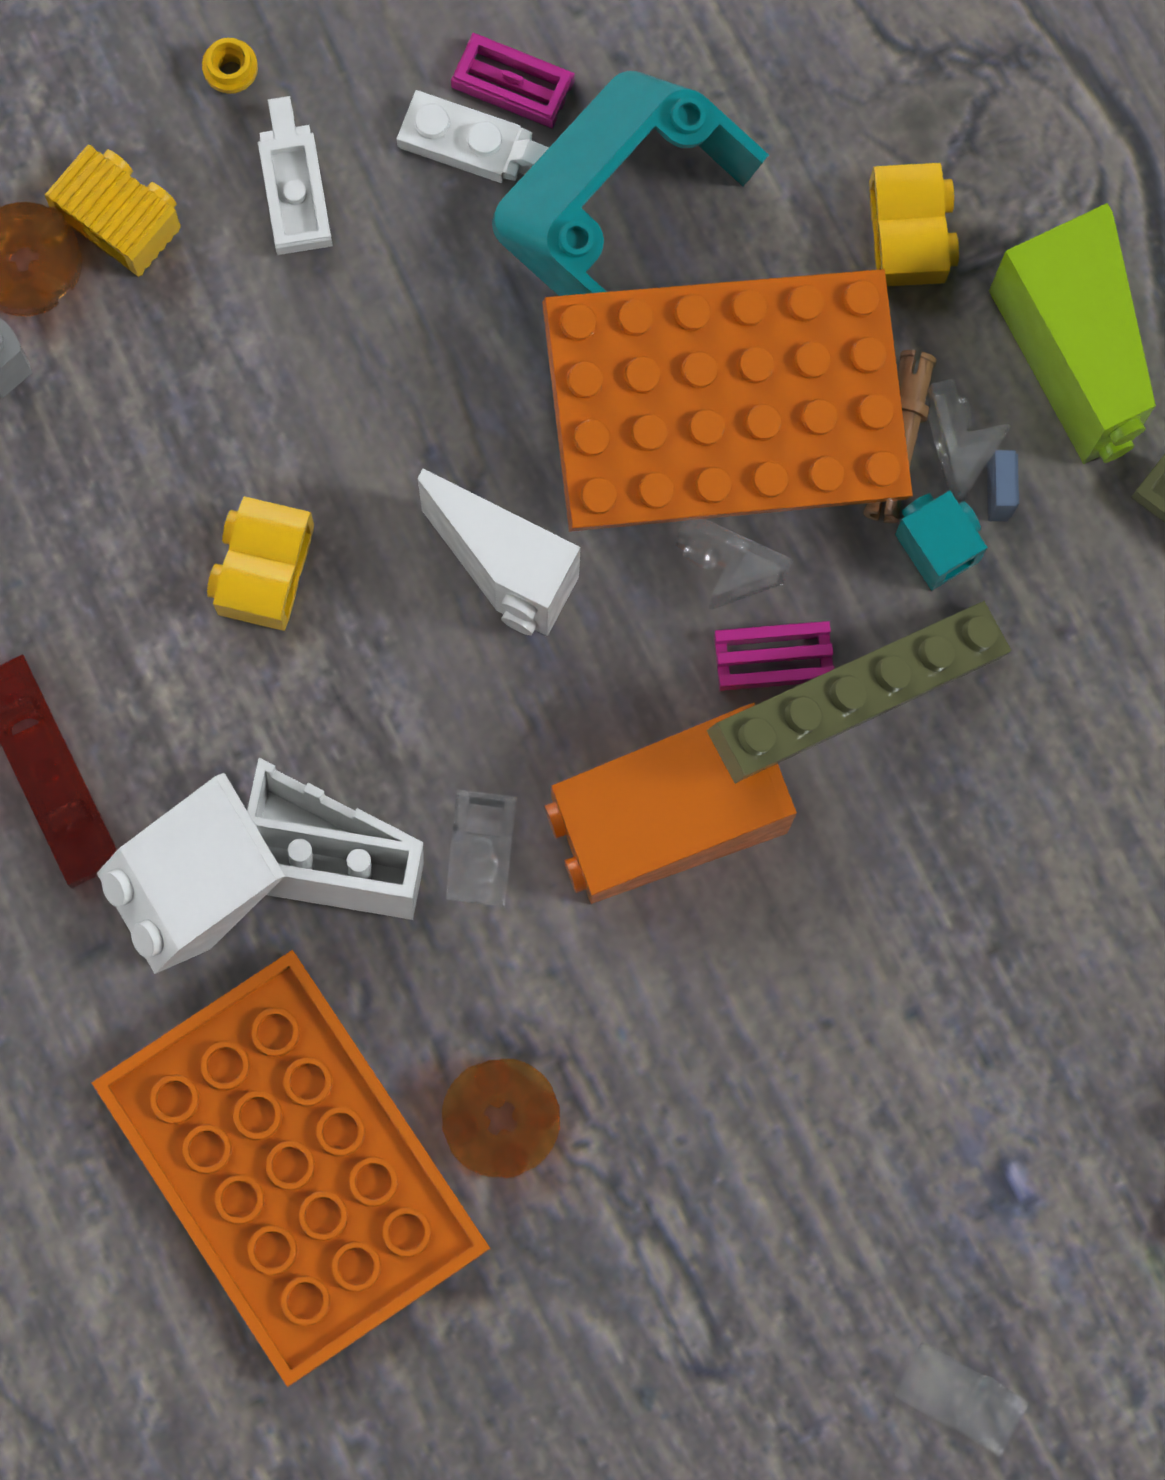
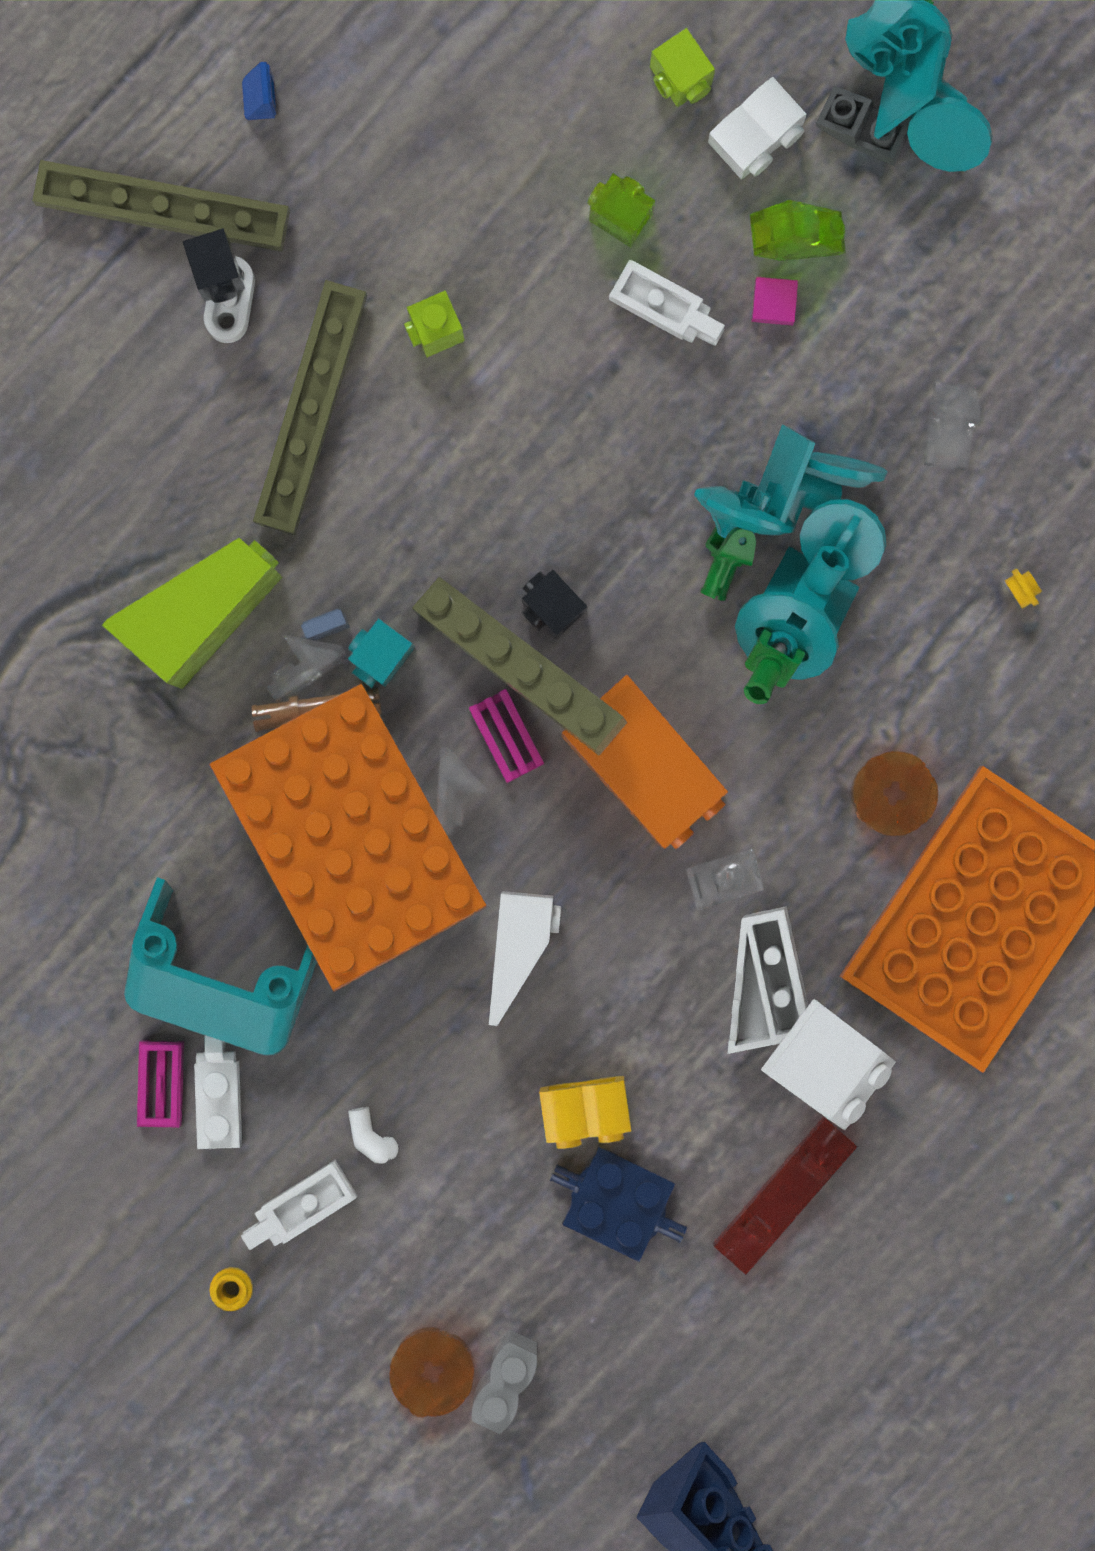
camera: 105 degrees left, 10 degrees up
(115, 209) = (373, 1323): yellow brick -> none
(128, 560) = (618, 1203): none -> dark blue plate
(338, 290) = (367, 1141): none -> white arm
(704, 1403) = (1023, 588): none -> yellow plate
(801, 1099) = (797, 618): none -> teal piece
(911, 223) = (158, 760): yellow brick -> none
(921, 775) = (551, 603): none -> black brick
(962, 1144) = (790, 482): none -> teal piece

